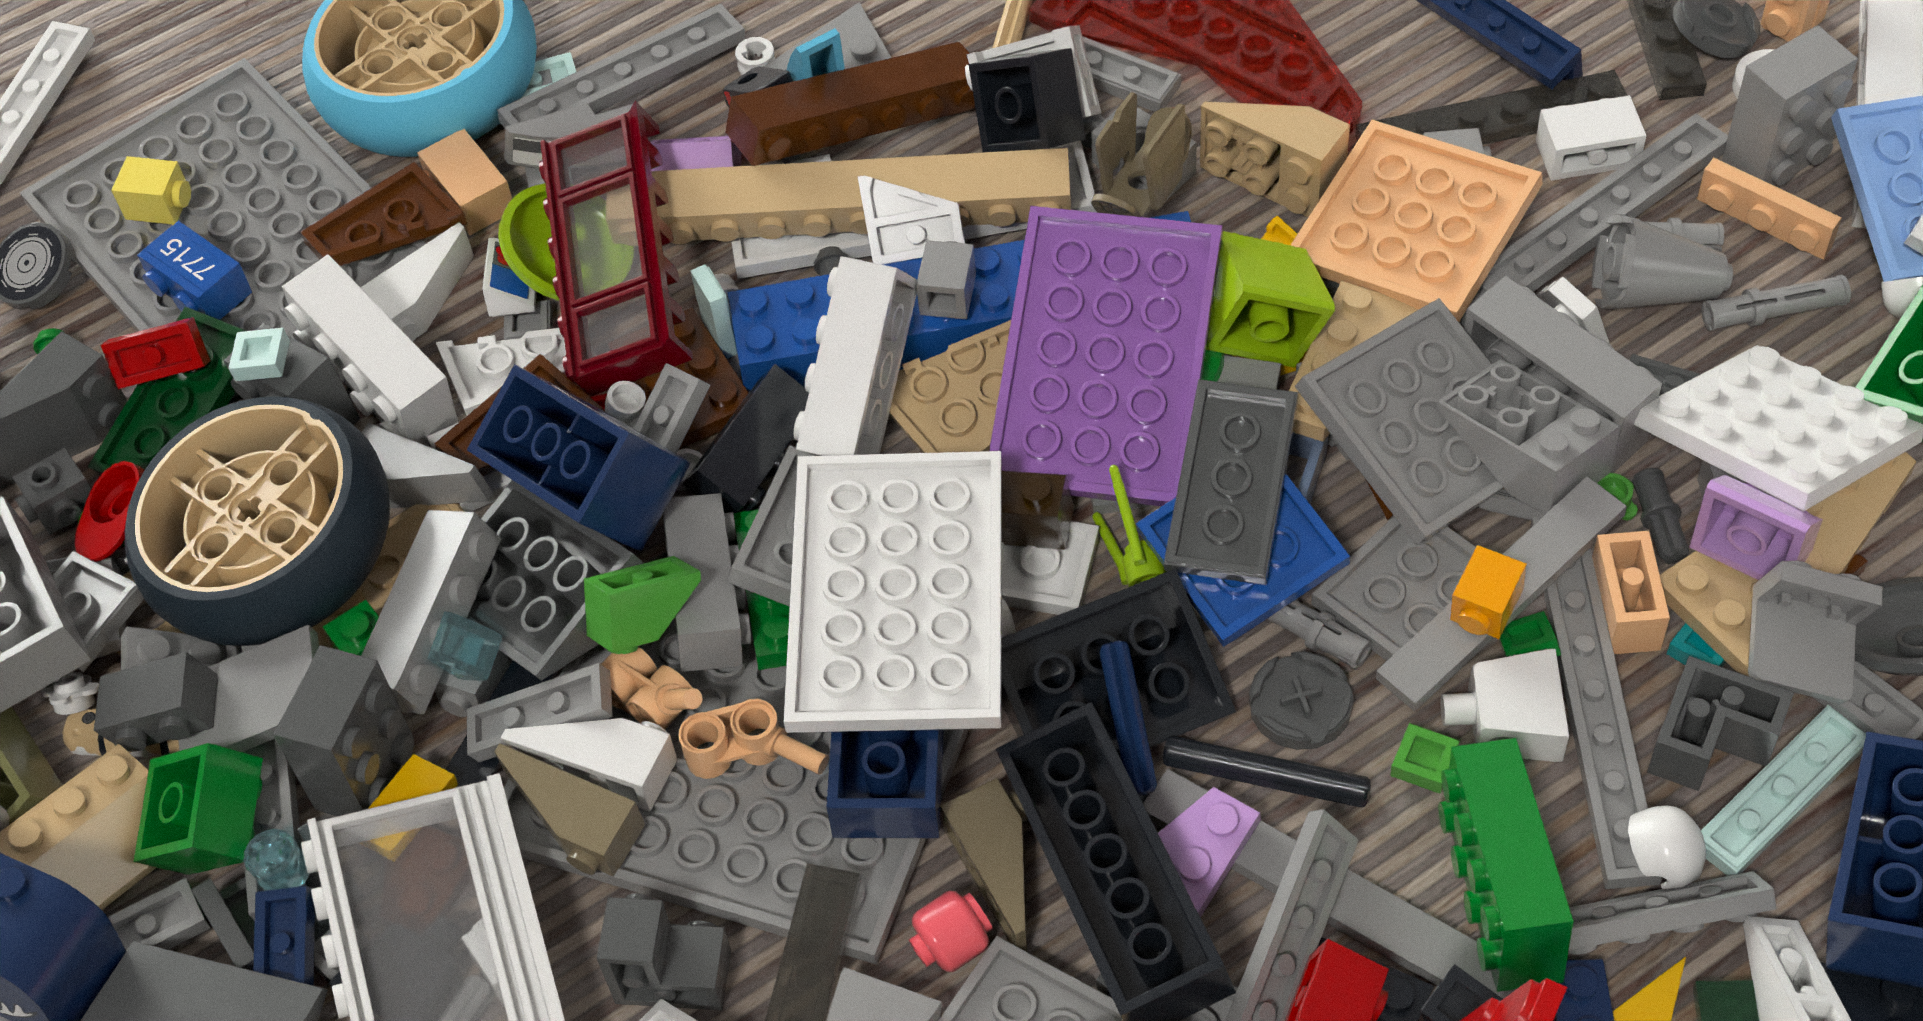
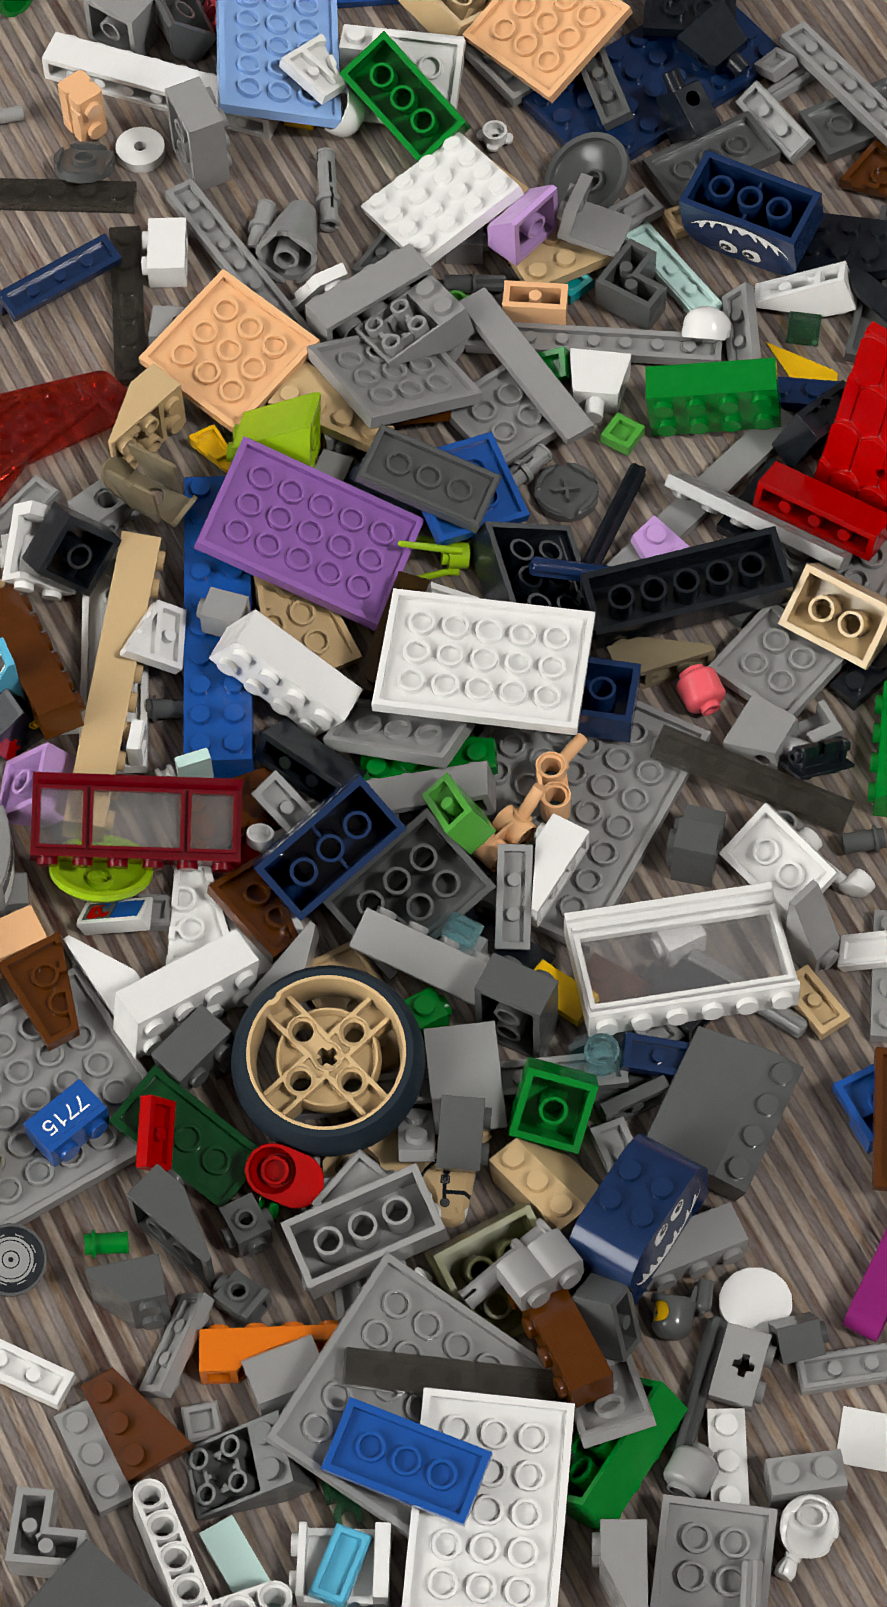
camera: 85 degrees left, 5 degrees up
(259, 354) = (194, 1043): light aqua plate -> none
(584, 819) = (591, 883): dark tan slope -> none
(753, 239) = (137, 742): none -> white tile
(1487, 592) = (537, 364): light orange brick -> none
(1768, 208) = (253, 174): light nougat plate -> none

